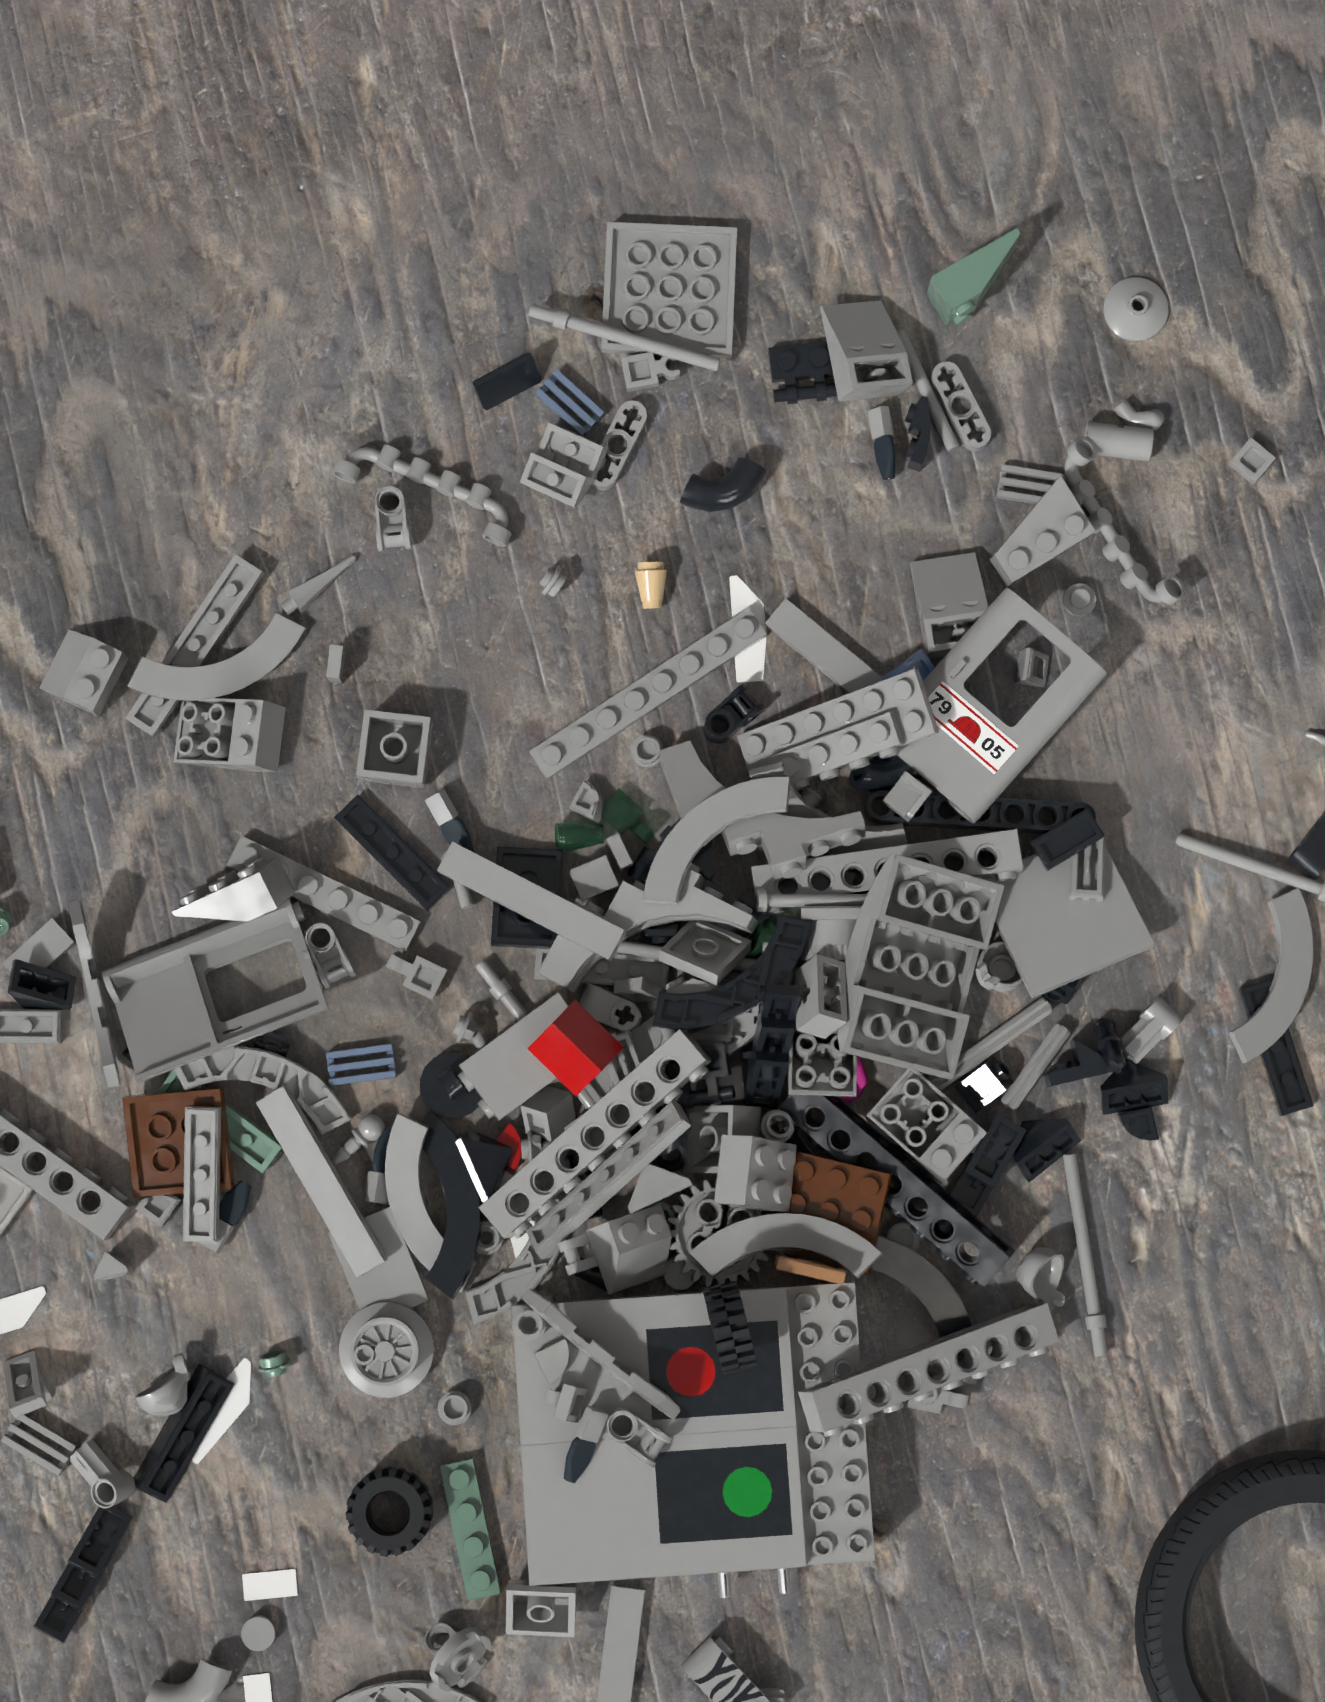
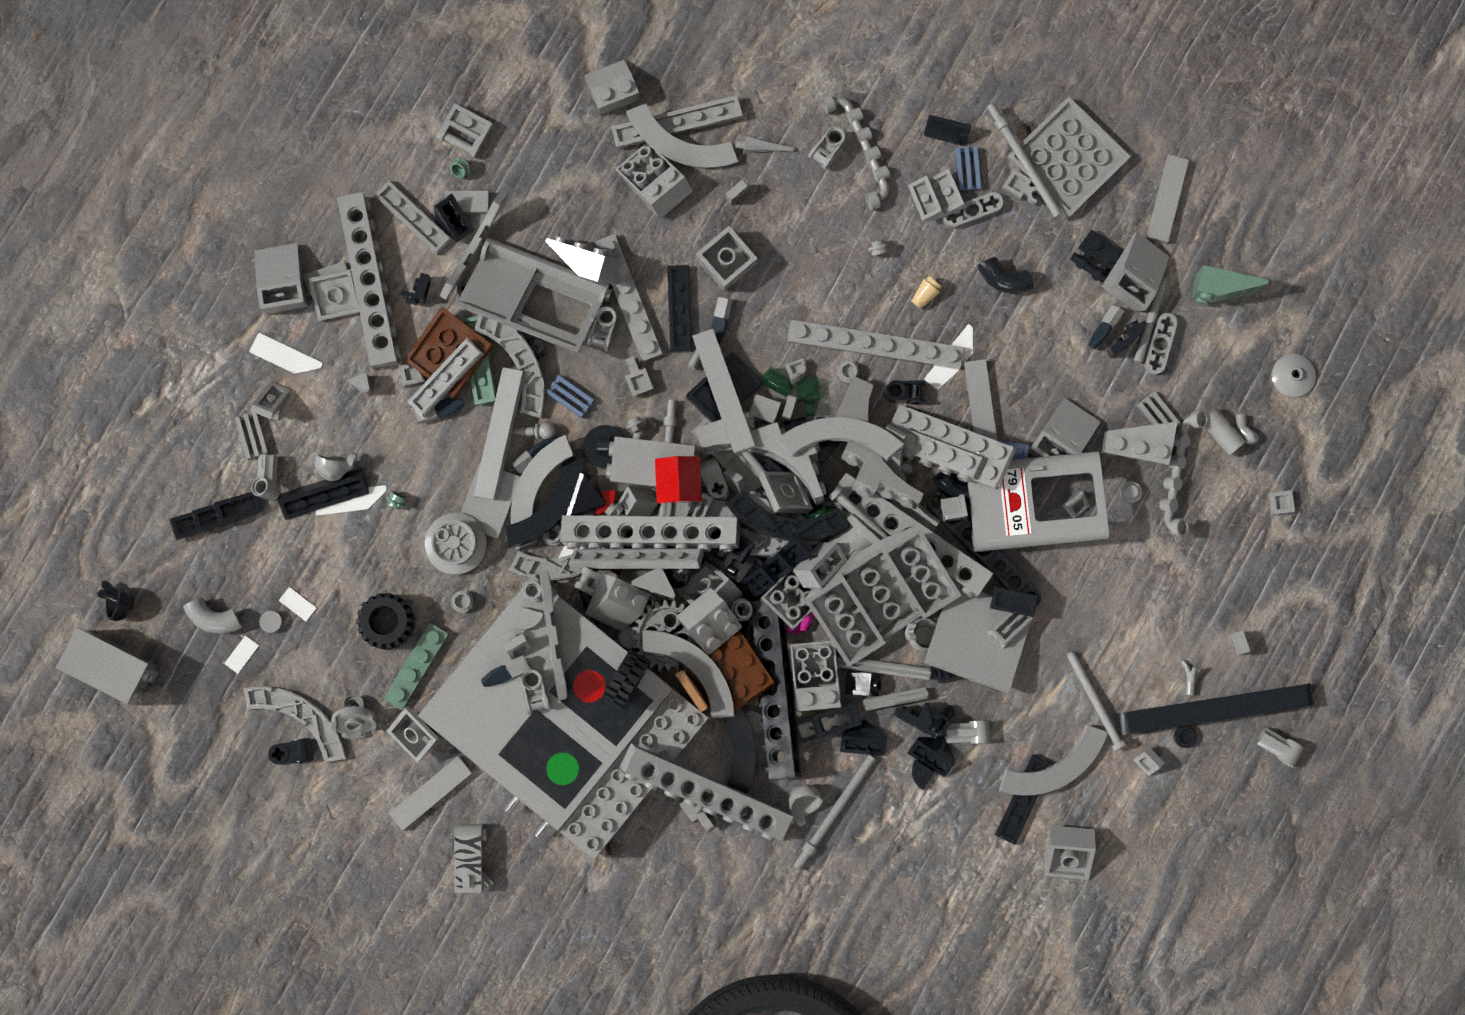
camera: 45 degrees right, 0 degrees up
(77, 1096) = (421, 289): none -> black bracket
(819, 238) = (1167, 199): none -> light grey tile

